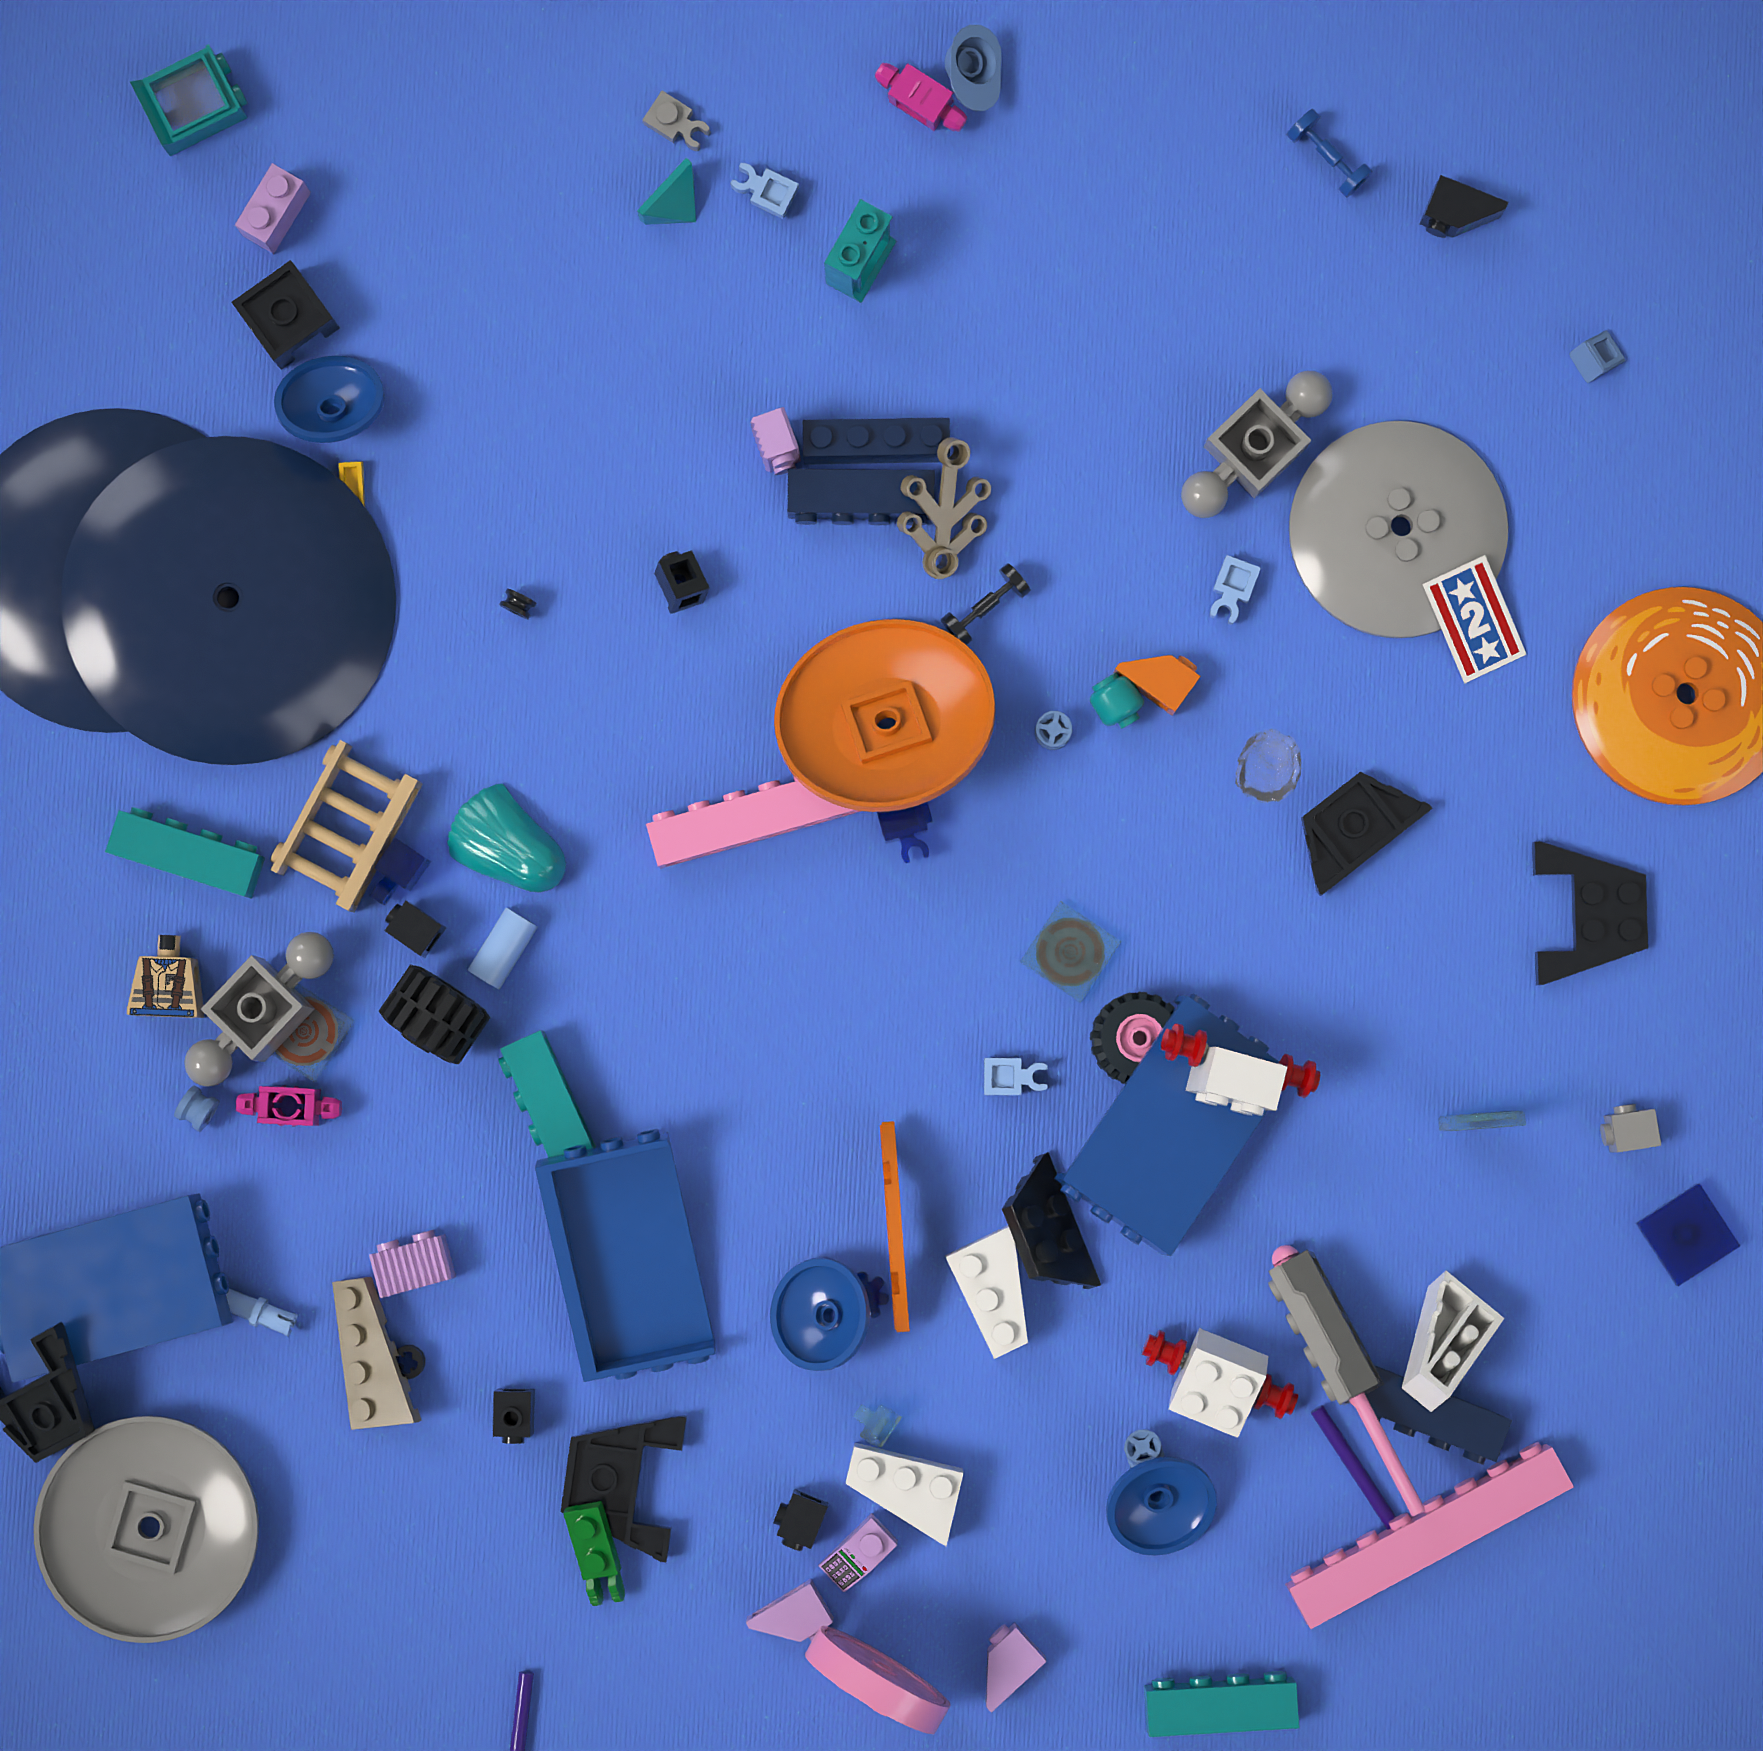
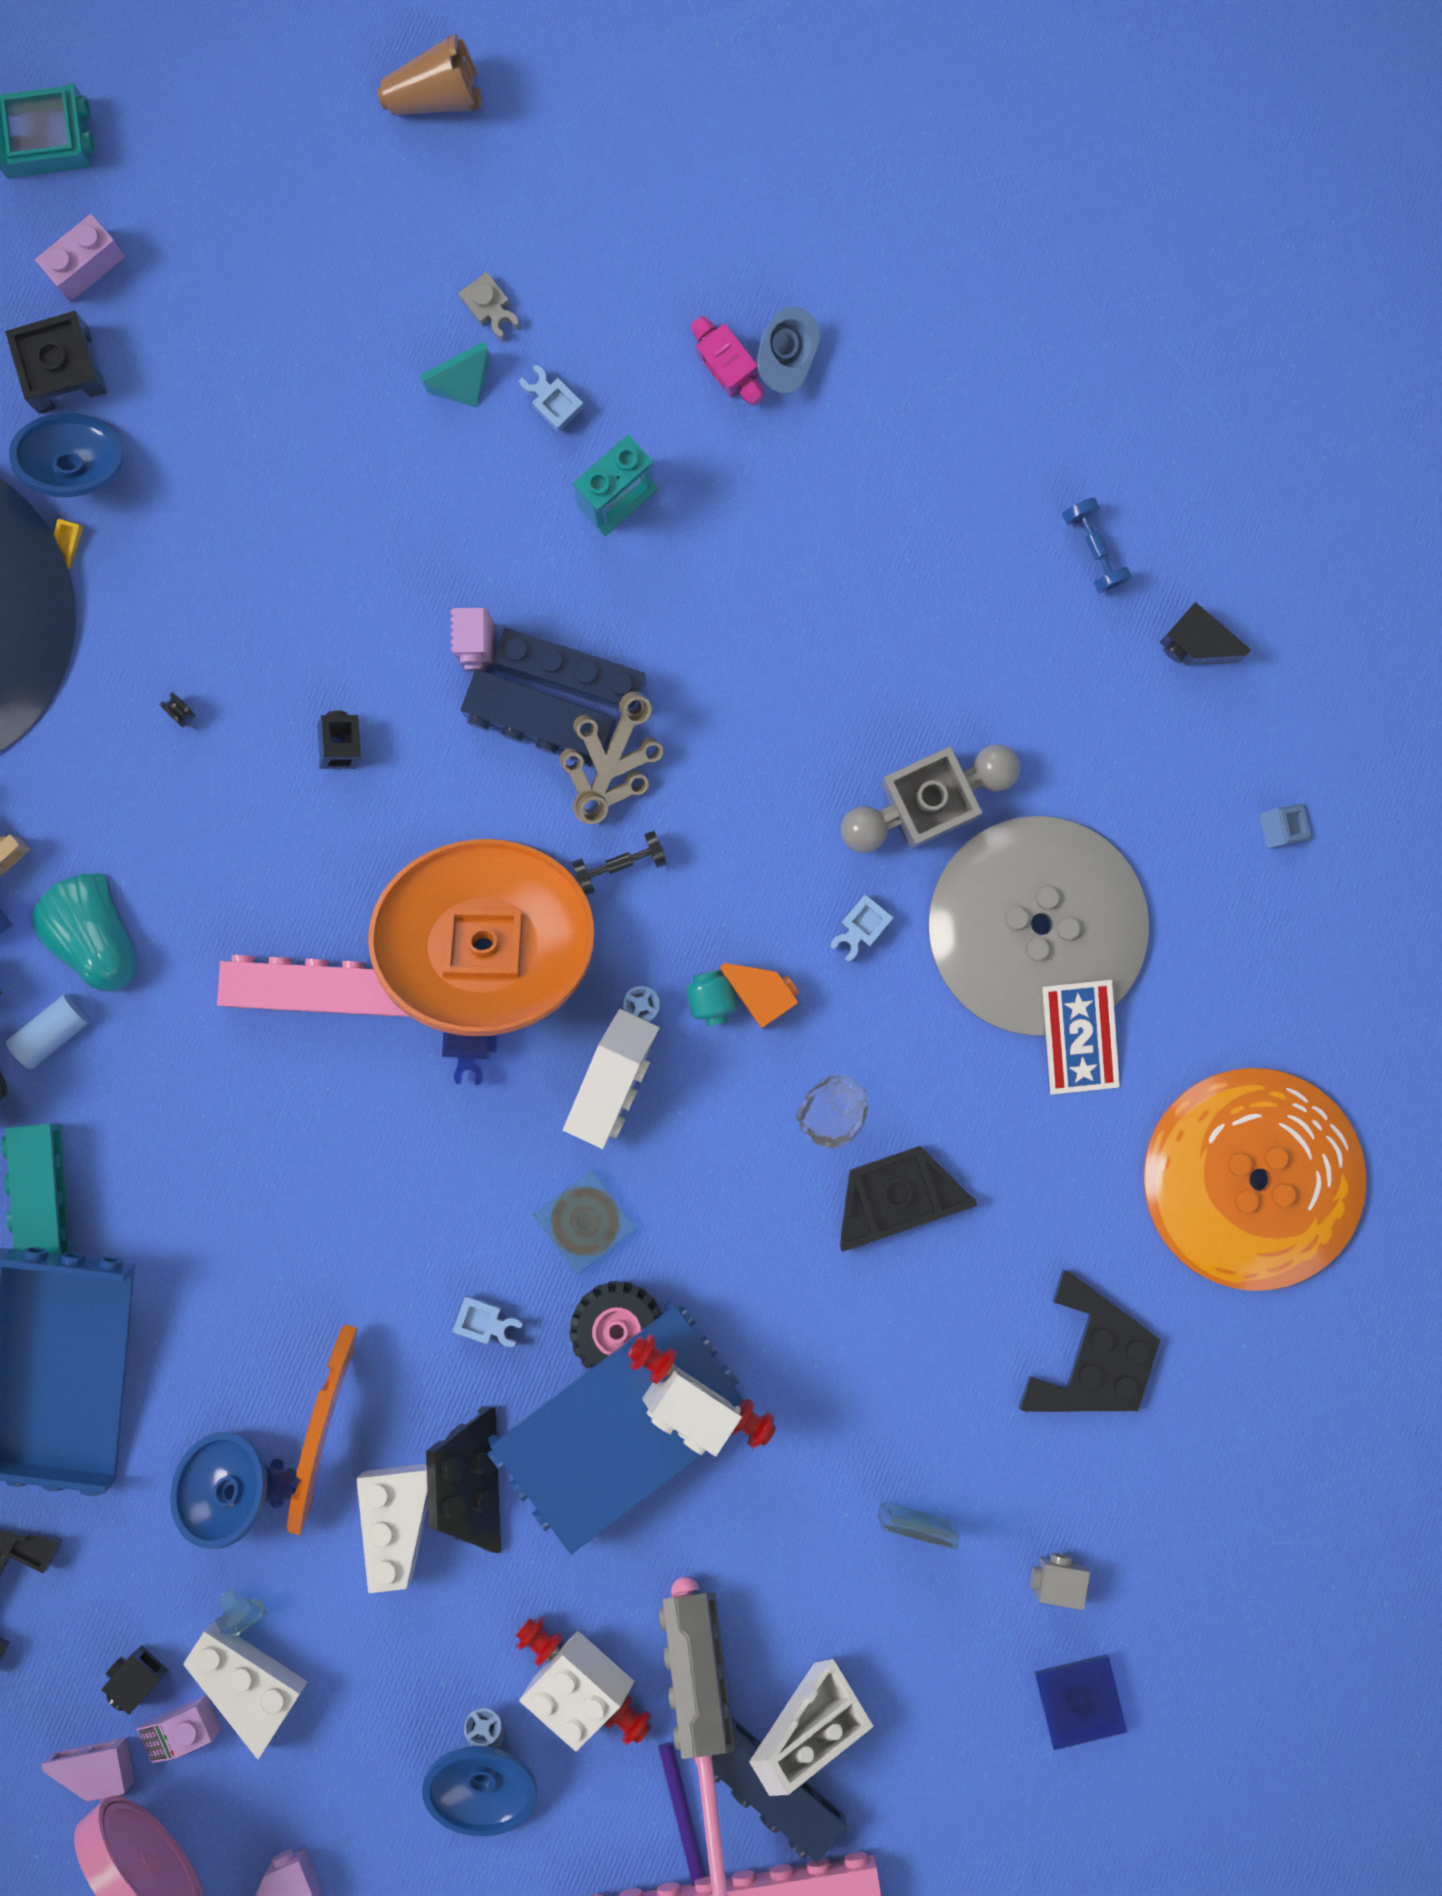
camera: 15 degrees right, 0 degrees up
(1052, 808) = (611, 1079): none -> white wedge

